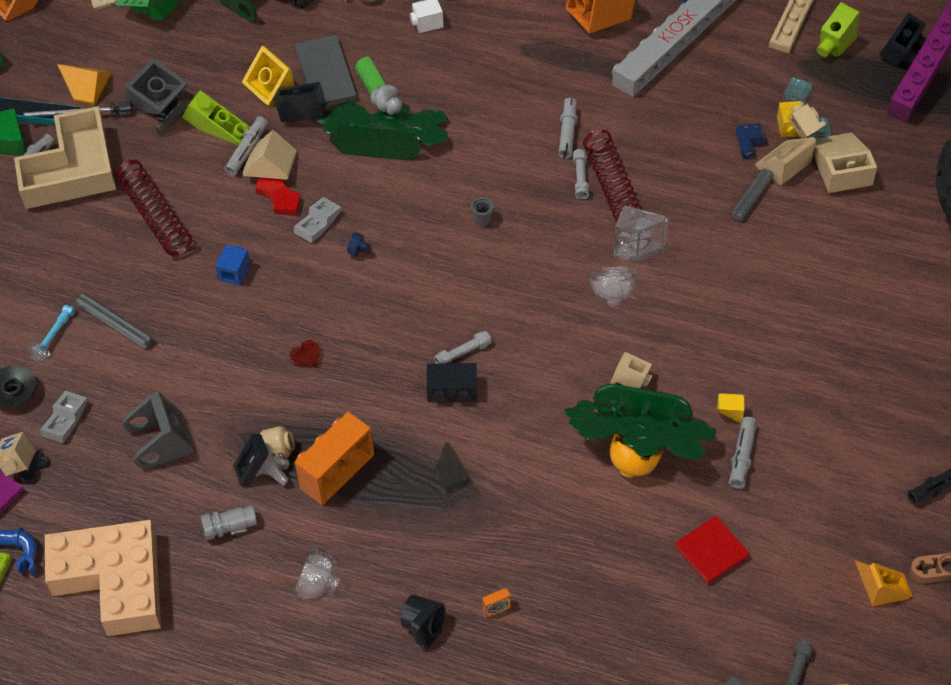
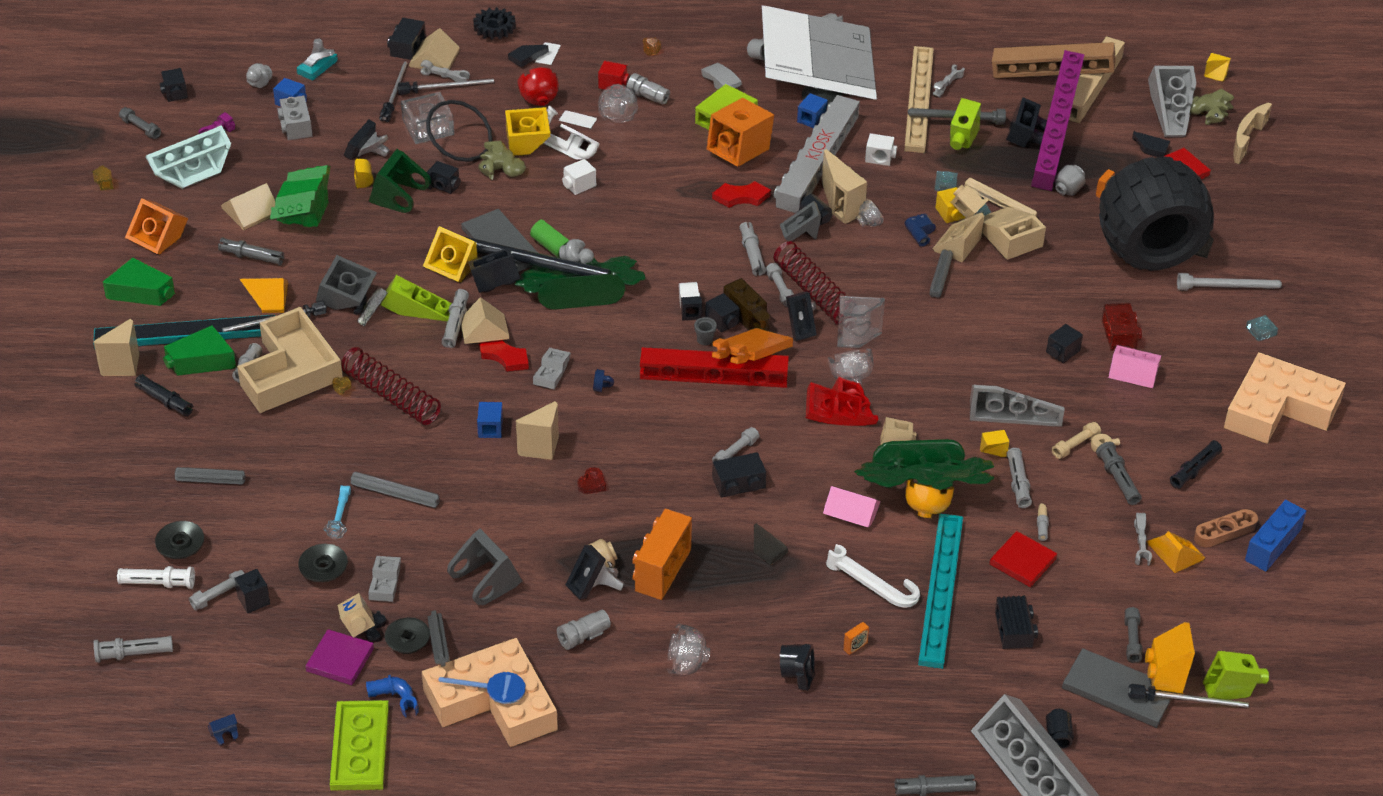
camera: 20 degrees left, 10 degrees down
(49, 481) = (404, 628): none -> pearl dark grey piece
(77, 501) = (438, 638): none -> dark grey axle
(81, 31) = (242, 249): none -> dark grey pin
(111, 195) = (341, 384): none -> clear yellow piece
(111, 575) = (502, 687): none -> blue piece
(270, 291) = (538, 432): none -> tan slope
(347, 98) = (541, 260): none -> black piece
(475, 254) = (703, 368): none -> red piece
(481, 173) = (690, 298): none -> leg
(508, 194) = (723, 312): none -> black brick
(517, 239) = (751, 345): none -> orange tile
(534, 191) = (752, 306): none -> dark brown brick
(541, 539) = (838, 560): none -> white piece
(552, 445) = (851, 507): none -> bright pink brick
(572, 63) = (748, 194): none -> red tile
(583, 215) = (801, 315): none -> black piece
(587, 324) = (841, 405): none -> red slope
(609, 567) = (940, 591): none -> teal tile
(628, 108) = (805, 220): none -> dark grey slope
(648, 97) = (824, 209): none -> black brick
(671, 626) = (1015, 622): none -> black brick
(684, 82) = (842, 187): none -> tan slope
(701, 113) = (869, 214): none -> clear brick
(741, 42) = (880, 149): none -> white brick
(749, 511) = (1042, 523): none -> light grey piece
(756, 364) = (1007, 406): none -> light grey wedge
(841, 415) = (1063, 448): none -> tan bar
(847, 121) = (997, 197): none -> tan axle
(850, 432) = (1099, 439): none -> tan piece
(851, 305) = (1064, 343): none -> black brick
(852, 463) = (1114, 465): none -> dark grey pin
(854, 540) = (1140, 524): none -> light grey piece
(878, 27) = (997, 117): none -> dark grey piece
(918, 348) = (1134, 366): none -> bright pink brick
(920, 298) = (1121, 326): none -> clear red brick
(929, 115) = (1070, 180): none -> light grey head

